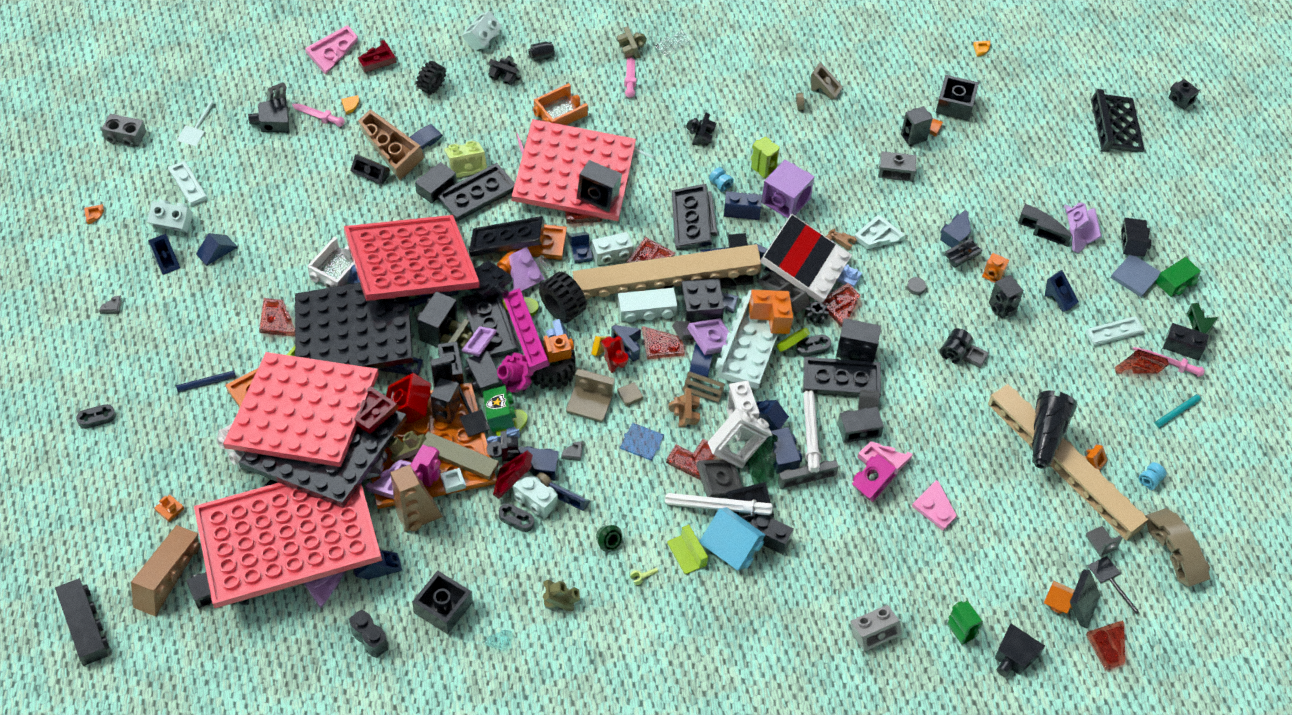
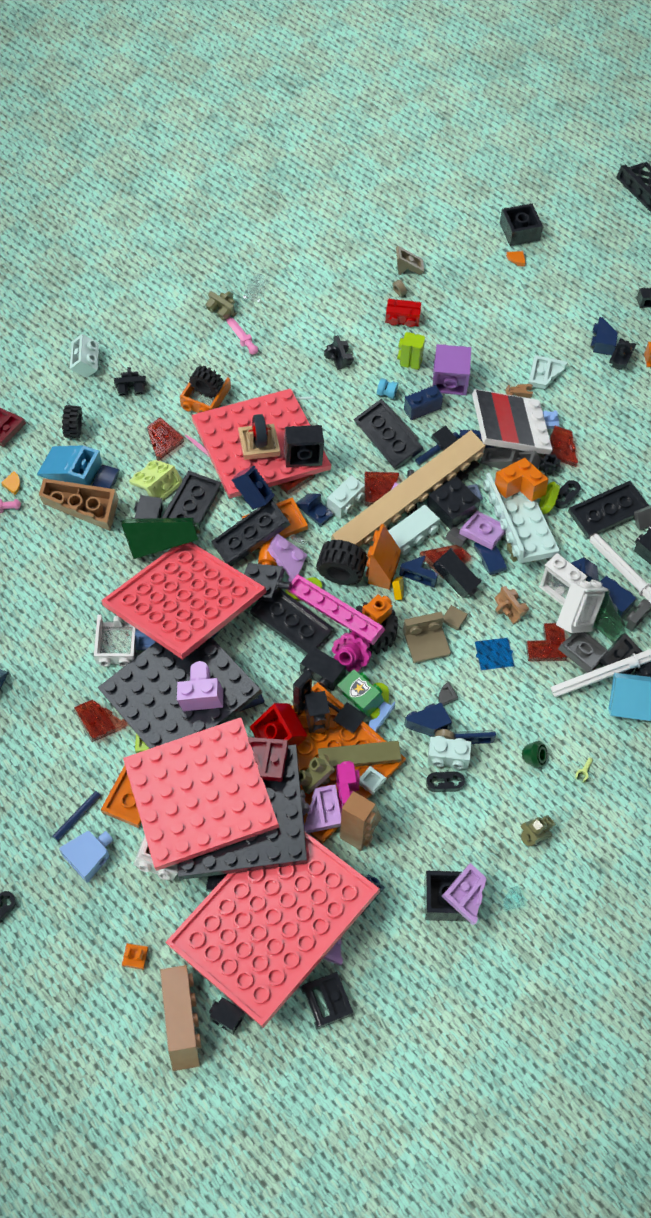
camera: 30 degrees left, 5 degrees up
(81, 621) = (139, 1115): black brick -> none
(190, 412) = (87, 853): none -> light blue torso
(294, 626) = (333, 996): none -> black plate
(361, 332) = (200, 691): none -> lavender brick
(368, 633) = (410, 965): black brick -> none
(370, 169) = (78, 535): black brick -> none
(406, 112) = (71, 464): none -> dark azure slope
(428, 198) = (158, 534): none -> dark green slope
(436, 318) = (248, 641): black brick -> none
(452, 349) = (285, 672): brick -> none
(453, 603) = (466, 893): none -> lavender wing
(460, 332) = (271, 639): olive hips -> none
(479, 341) = (300, 641): lavender tile -> none
(497, 128) = (163, 438): none -> clear red wing
(507, 448) = (394, 725): black hips -> none
(511, 473) = (417, 744): dark red wing -> none
(531, 198) = (253, 487): none -> dark blue brick
(541, 51) = (149, 349): black brick -> none
(559, 329) = (357, 596): light blue tile -> none
(563, 97) = (206, 381): none -> black tyre
(567, 163) = (259, 439): none -> tan plate
(599, 310) = (382, 559): none -> orange slope
(614, 353) = (420, 588): red hips -> none
(657, 358) = (457, 574): none -> black brick
(688, 381) = (525, 575): dark tan tile -> none
(688, 550) = (604, 727): lime panel -> none
(786, 123) = (403, 312): none -> red brick
(858, 341) = (604, 471): black brick -> none
(897, 166) = (517, 306): brick -> none
(916, 126) = (510, 263): black brick -> none
(916, 286) = (605, 400): tile -> none
(981, 47) = (503, 173): light orange tile -> none

